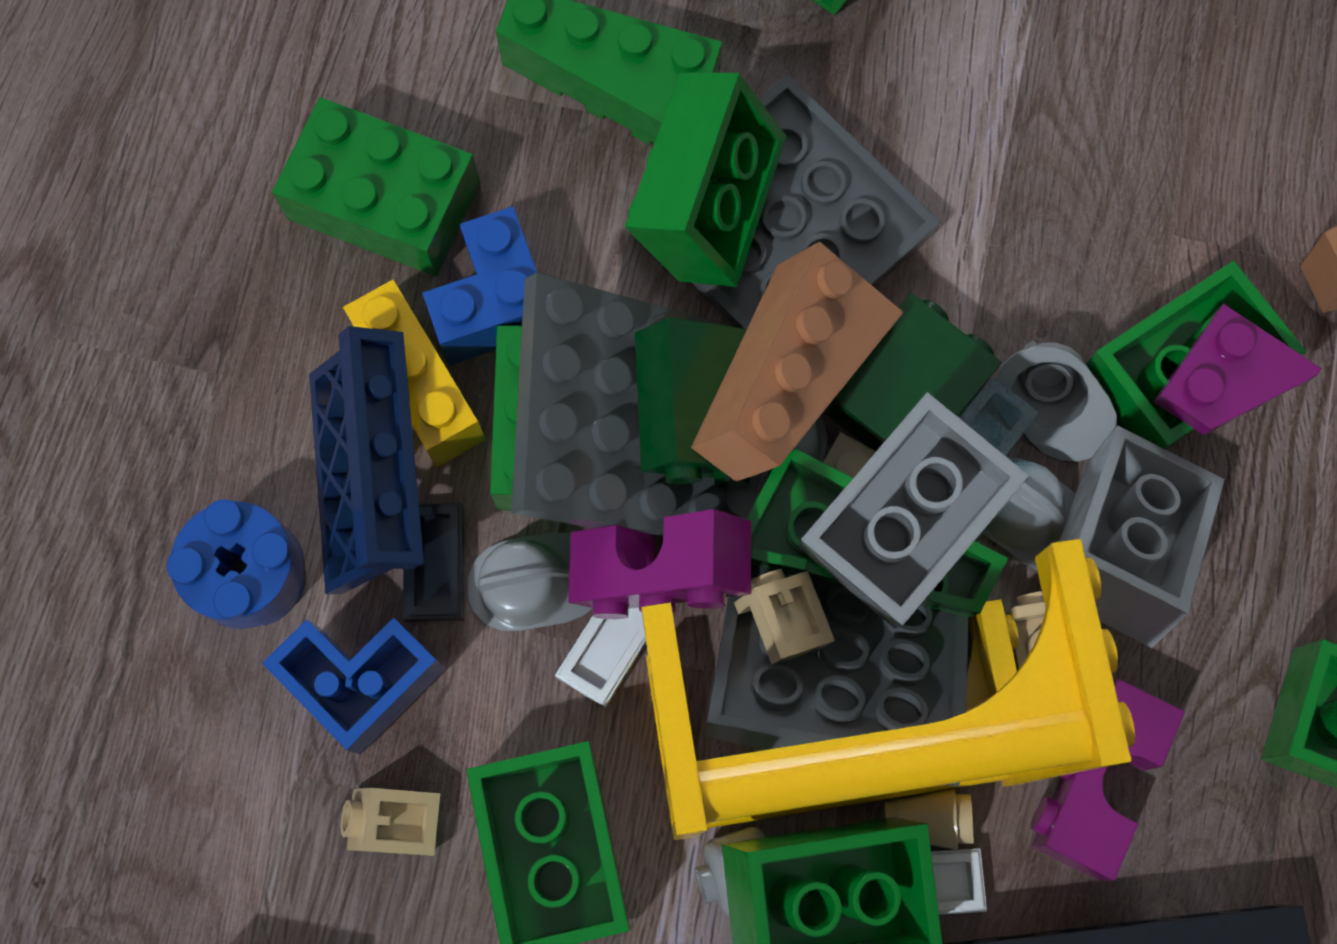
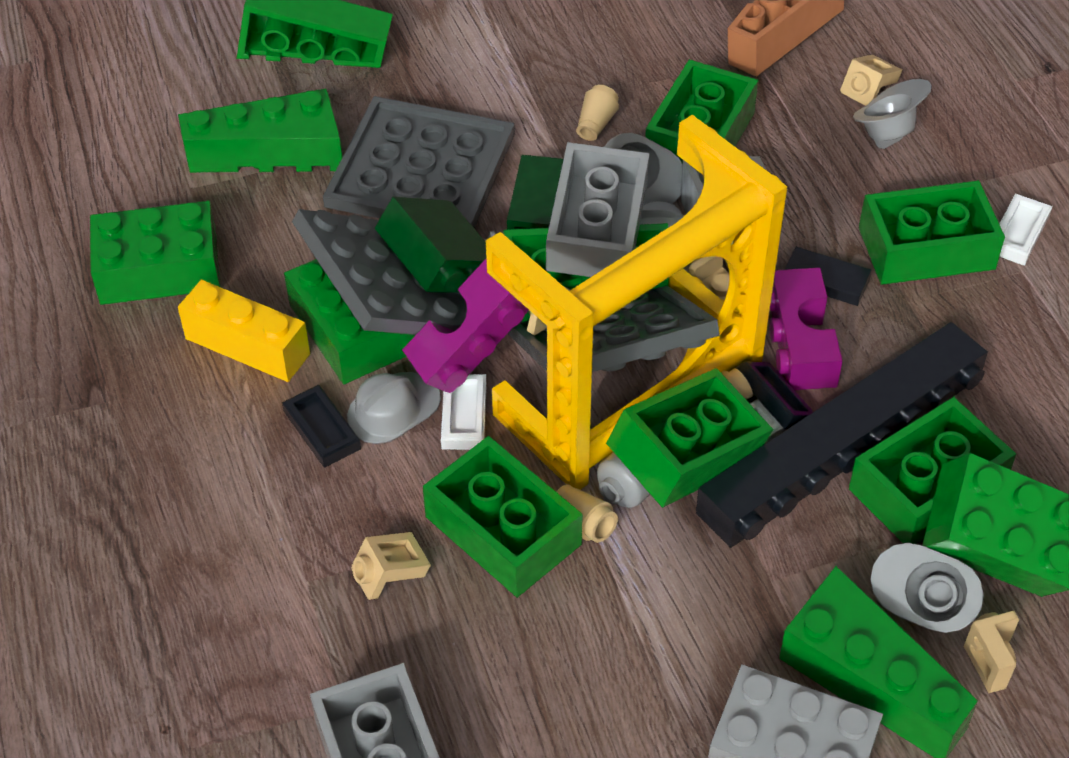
camera: 30 degrees left, 25 degrees down
(212, 545) = (195, 476): blue brick -> none
(355, 695) = (316, 500): blue brick -> none
(377, 450) = (256, 353): dark blue fence -> none
(473, 307) = (259, 260): blue brick -> none
(657, 891) = (598, 515): none -> tan cone
(707, 179) = (365, 142): green brick -> none
(792, 361) = (476, 193): nougat wedge -> none
(1003, 861) = (775, 393): none -> black tile
(1065, 257) = (597, 110): none -> tan cone
(1212, 718) = (841, 279): none -> black tile
(1231, 373) = (728, 100): magenta wing -> none

